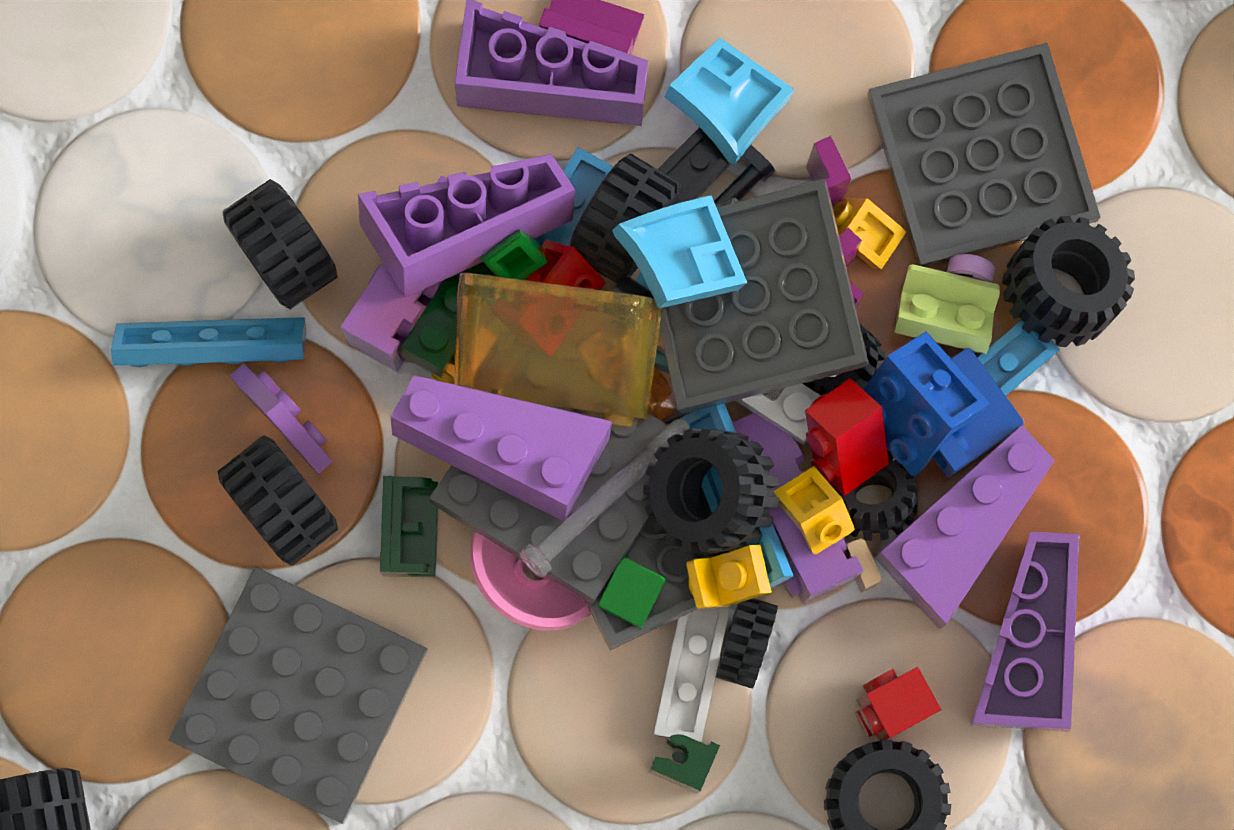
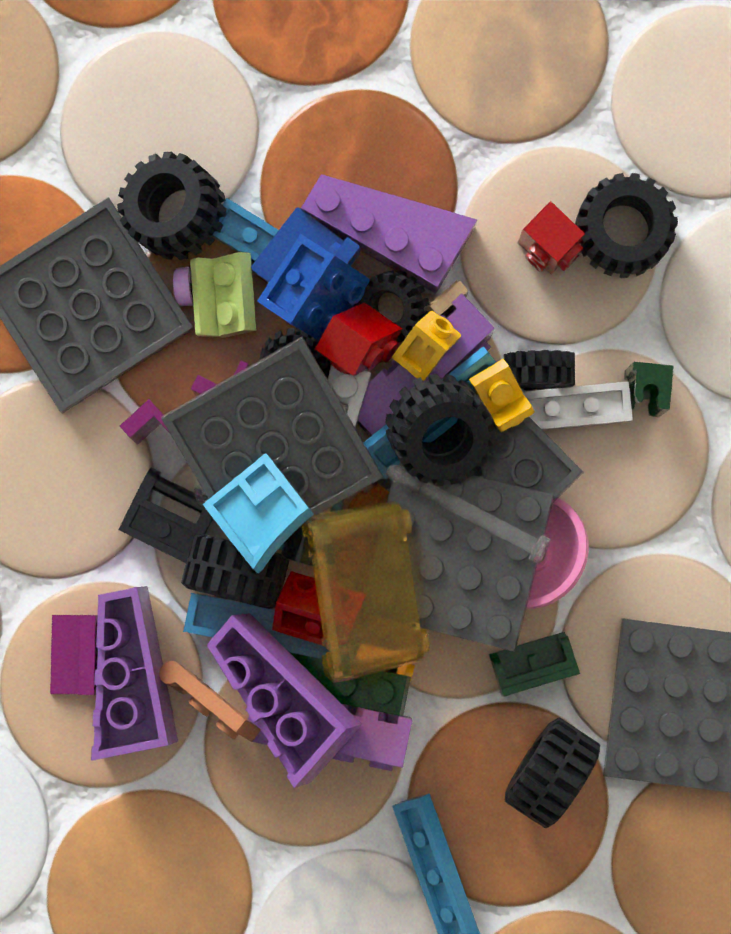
camera: 105 degrees left, 5 degrees up
(280, 244) = (345, 843): black tyre -> none
(281, 412) = (481, 794): medium lavender plate -> none
(491, 144) = (207, 700): none -> nougat plate
(504, 441) = (454, 599): medium lavender wedge -> none
(515, 256) = (299, 646): green slope -> none
(632, 592) = (537, 467): green slope -> none
(729, 97) = (103, 522): medium azure plate -> none
(875, 228) = (176, 378): yellow bracket -> none
(1034, 653) = (477, 146): medium lavender wedge -> none

